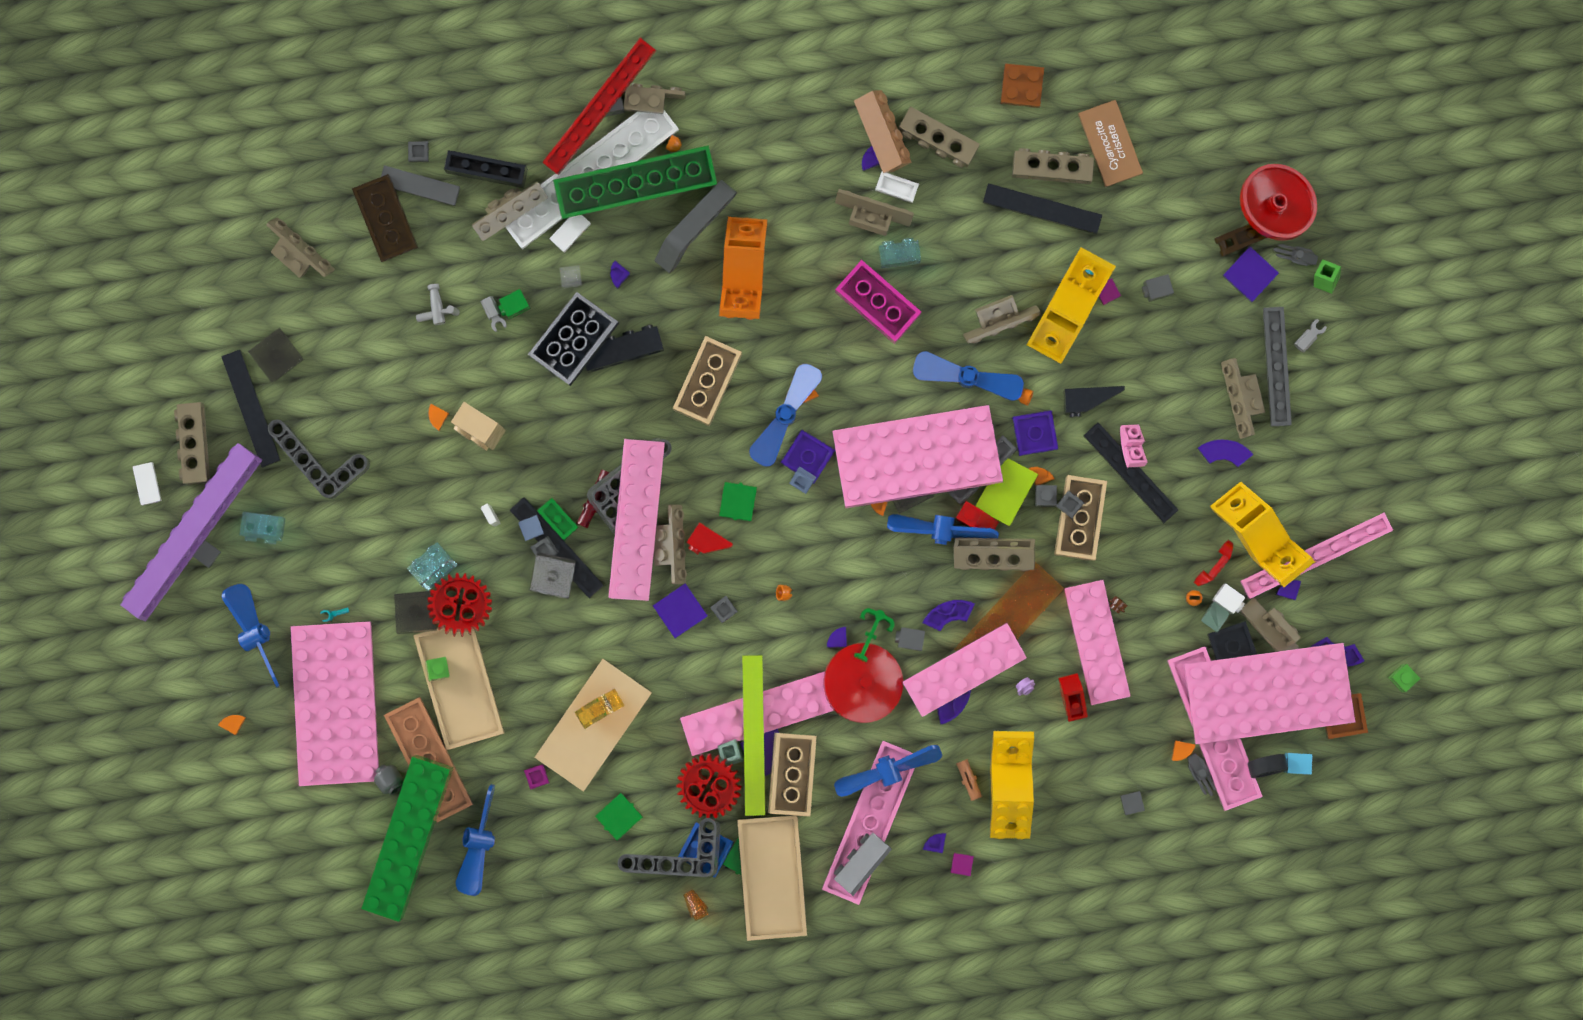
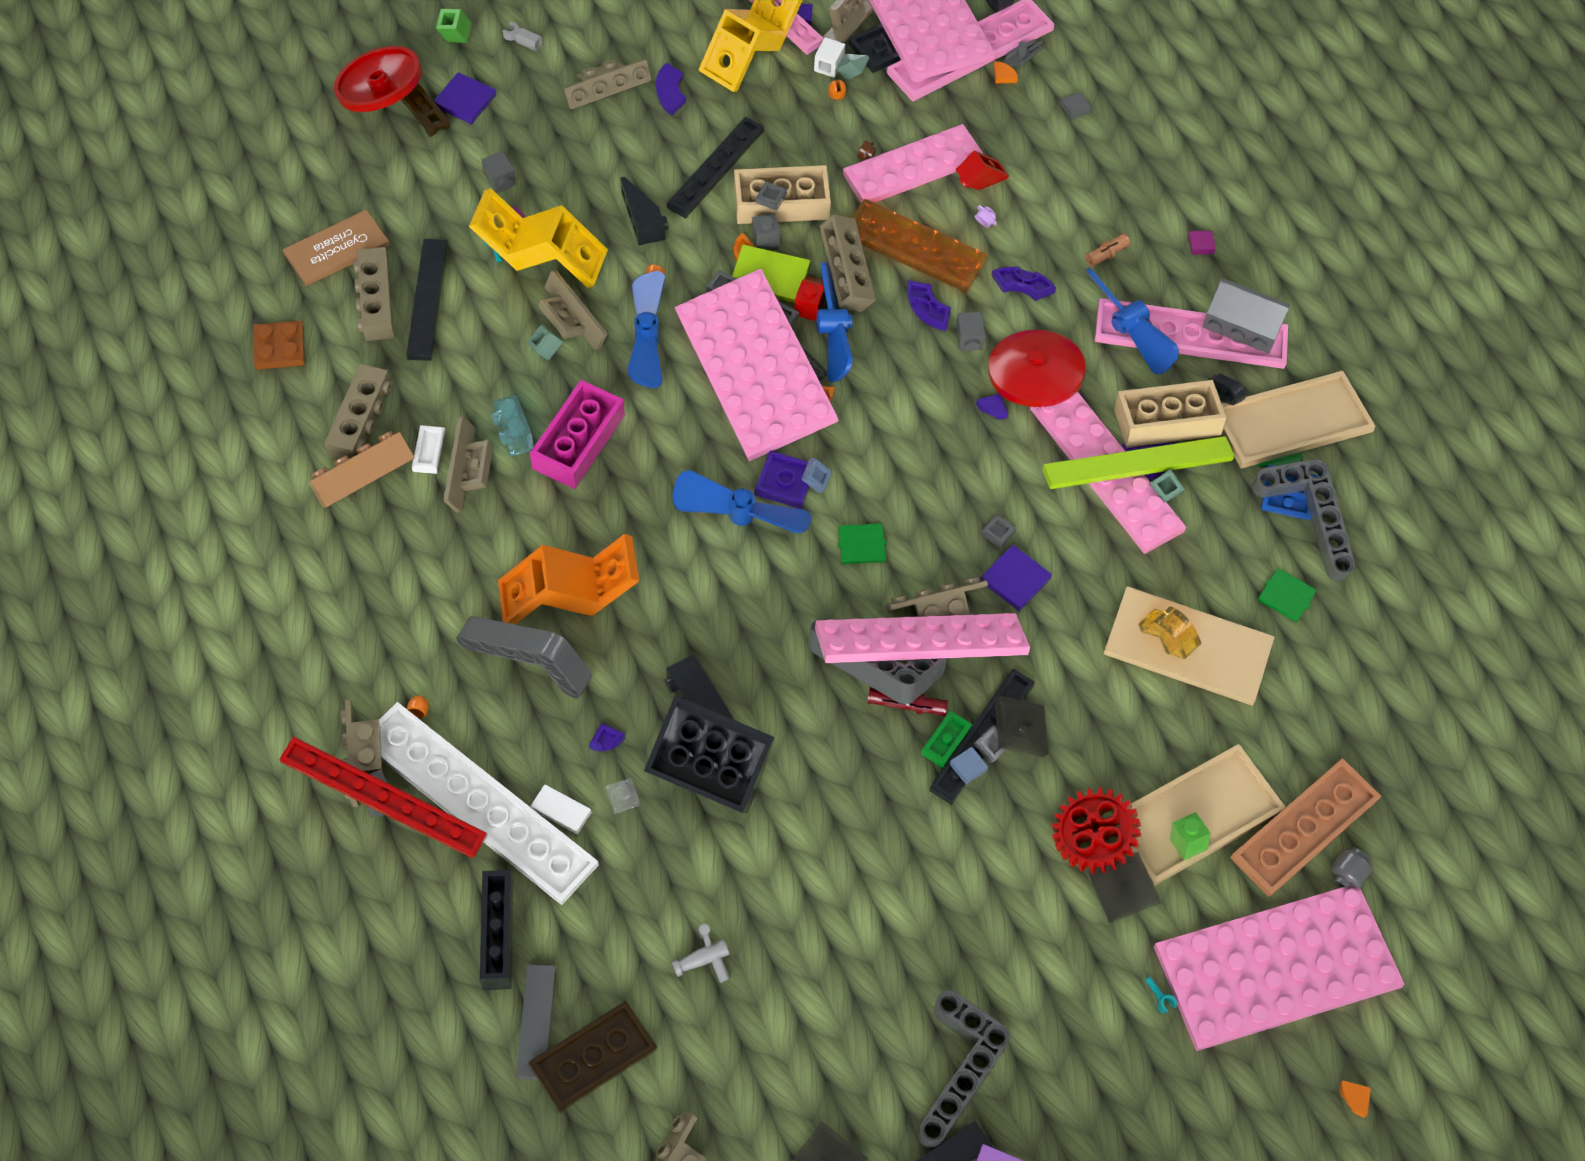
camera: 110 degrees left, 25 degrees down
(241, 605) = (1228, 1093): blue piece -> none
(262, 527) = (1076, 1120): clear light blue brick -> none
(407, 838) = (1417, 822): green brick -> none
(418, 151) = (487, 1035): dark grey tile -> none
(432, 566) = (1057, 876): clear light blue brick -> none
(437, 416) = (854, 922): orange tile -> none
(477, 427) = (860, 842): tan brick -> none
(478, 841) = (1425, 741): blue piece -> none
(490, 515) = (968, 814): white tile -> none
(492, 312) = (694, 881): light grey bar -> none
(508, 209) = (546, 889): dark tan bracket -> none
(513, 304) = (677, 854): green brick -> none
(536, 776) = (1276, 696): magenta tile -> none
(634, 182) = (481, 733): green brick -> none
(696, 907) = (1358, 487): clear orange cone -> none
(707, 381) = (722, 598): tan brick -> none
(707, 541) = (922, 562): red slope -> none
(724, 796) = (1215, 499): red gear -> none
(783, 593) = (964, 471): orange hinge -> none
(807, 829) = (1228, 389): none -> black beam
(869, 159) = (397, 484): dark purple tile -> none
(879, 616) = (953, 371): green piece -> none
(935, 843) = (1188, 271): dark purple tile -> none
(964, 669) = (988, 271): bright pink plate -> none
(977, 294) = (544, 342): none -> sand green slope
(1011, 784) = (1101, 198): yellow bracket -> none
(1035, 433) = (694, 260): dark purple tile -> none
(1132, 445) = (676, 169): bright pink slope -> none
(1204, 578) = (776, 67): red bar -> none
(1277, 366) = (563, 57): dark grey plate -> none
(1298, 255) = (434, 60): dark grey piece -> none

